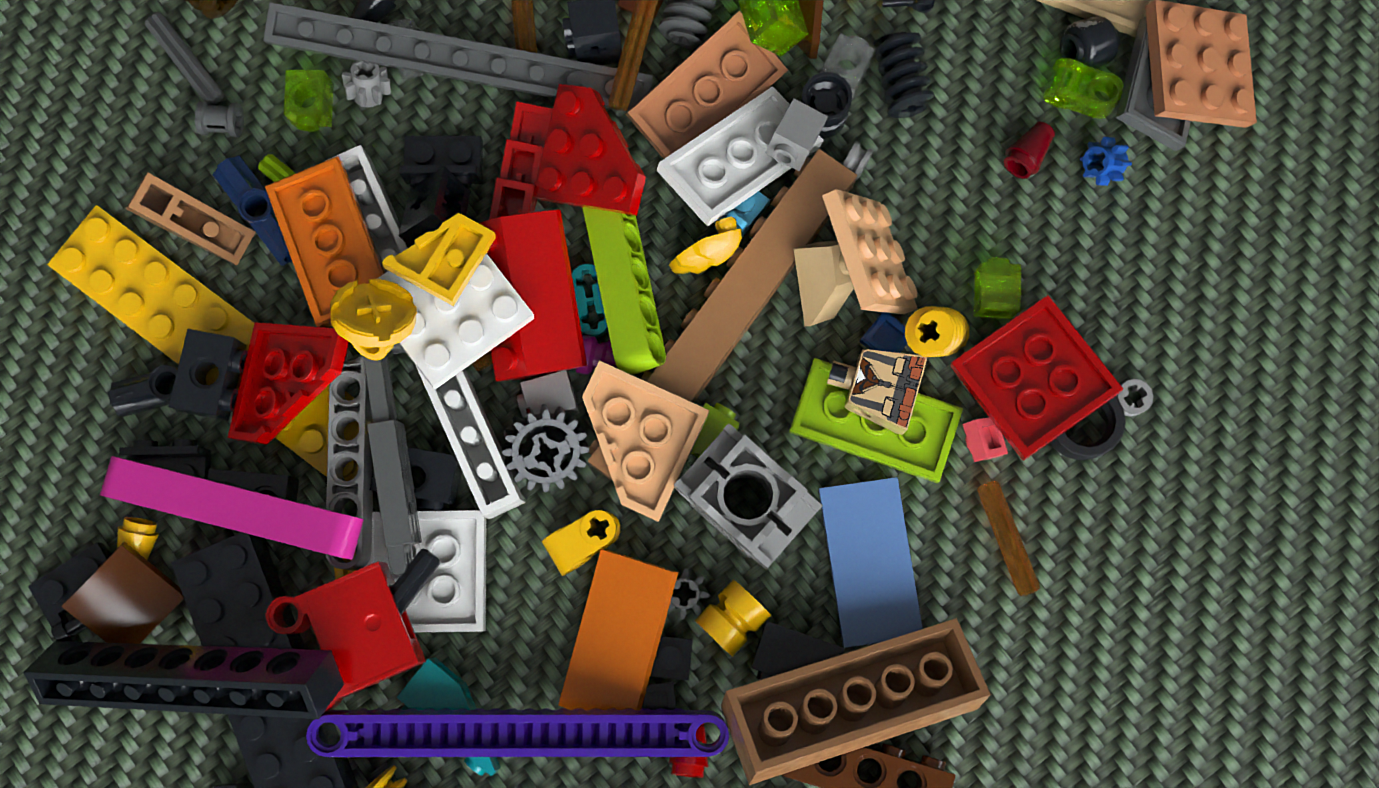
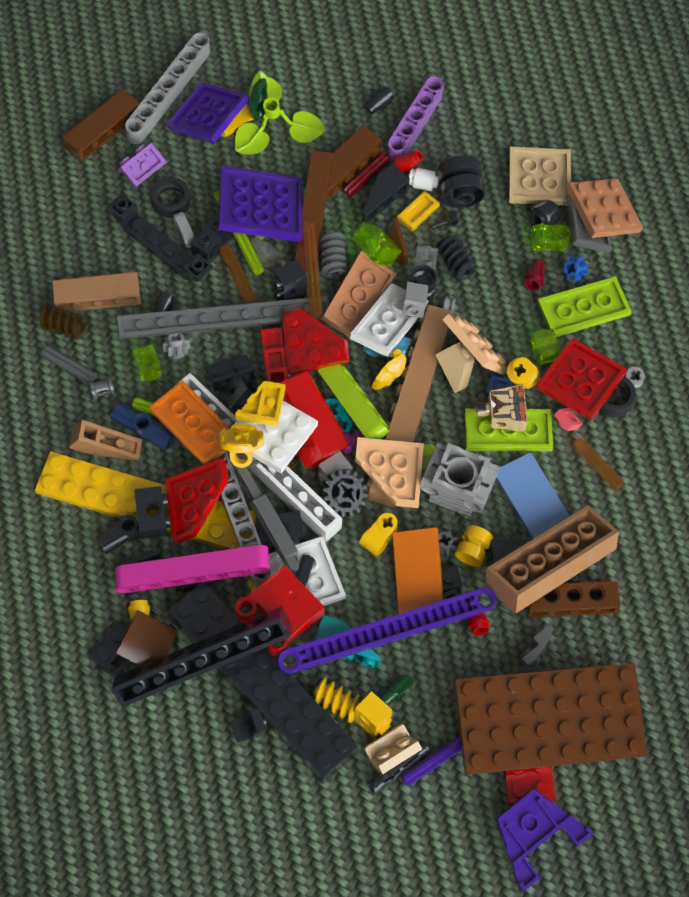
camera: 25 degrees left, 15 degrees down
(1094, 238) = (584, 306): none -> lime plate

